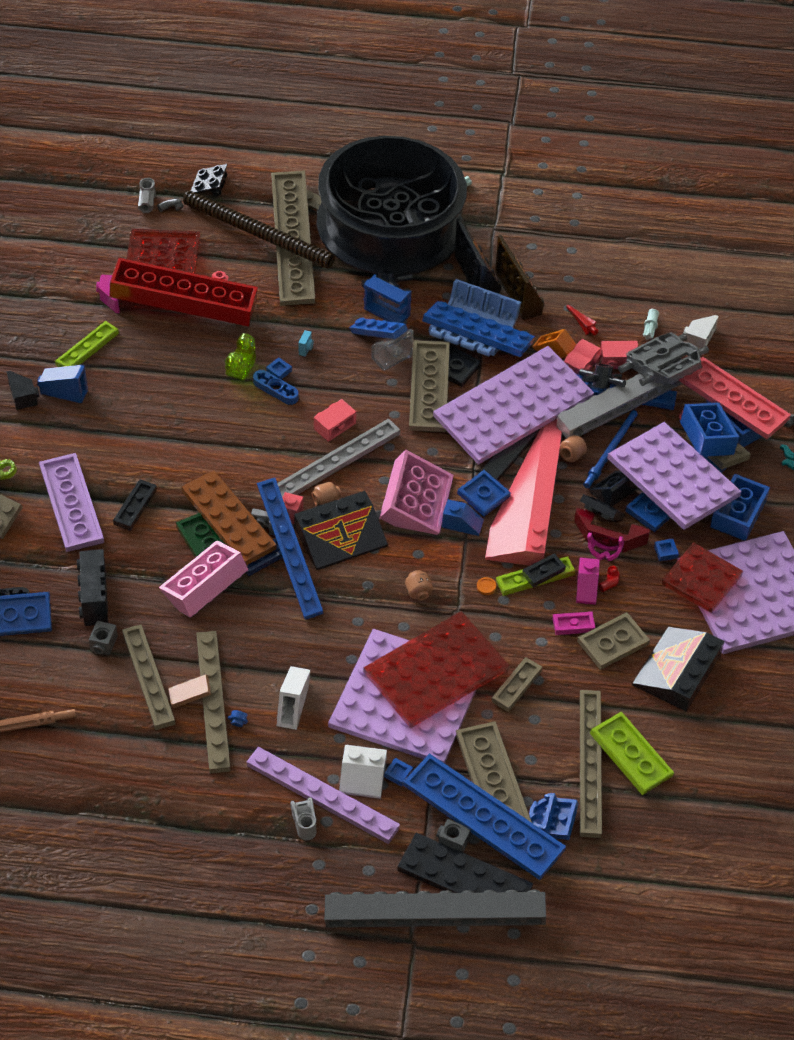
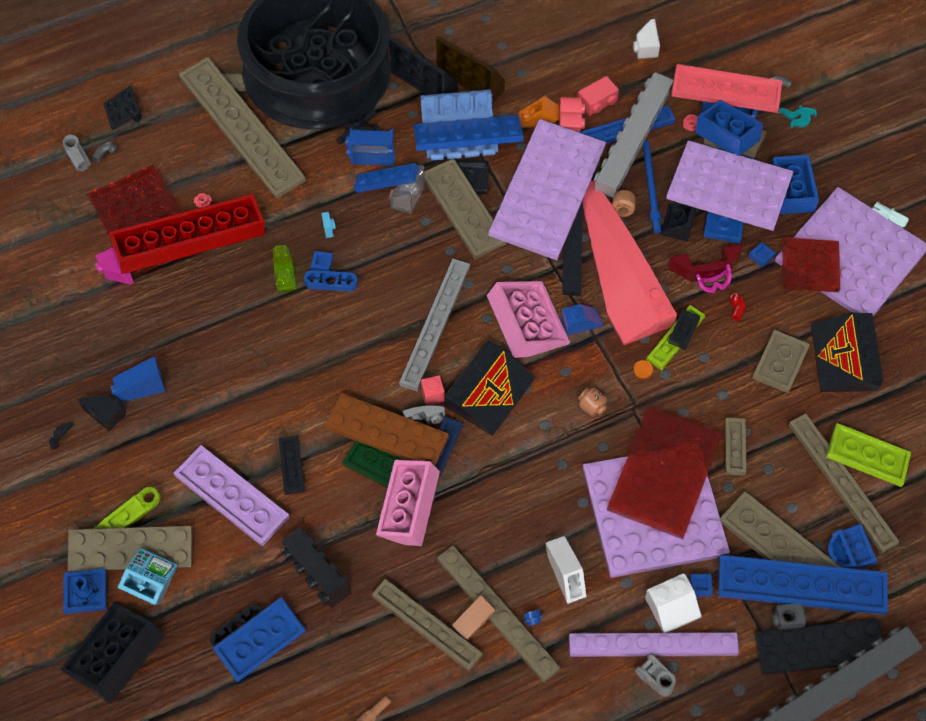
camera: 30 degrees left, 10 degrees up
(88, 345) = (130, 333): lime tile -> none
(103, 631) = (360, 604): dark grey brick -> none
(259, 229) = (205, 135): dark brown piece -> none
(290, 548) = (463, 430): blue plate -> none
(325, 493) = (452, 361): nougat head -> none
(334, 420) = (407, 285): coral brick -> none
(483, 493) = (582, 285): blue tile -> none
(573, 623) = (739, 363): dark pink plate -> none
(585, 322) = (548, 80): red piece -> none
(587, 581) = (723, 318): dark pink slope -> none
(598, 506) = (681, 246): black plate -> none
(602, 376) = (606, 124): black bar -> none
(651, 324) = (601, 54): light aqua axle -> none
(655, 355) = (632, 90): dark grey piece -> none

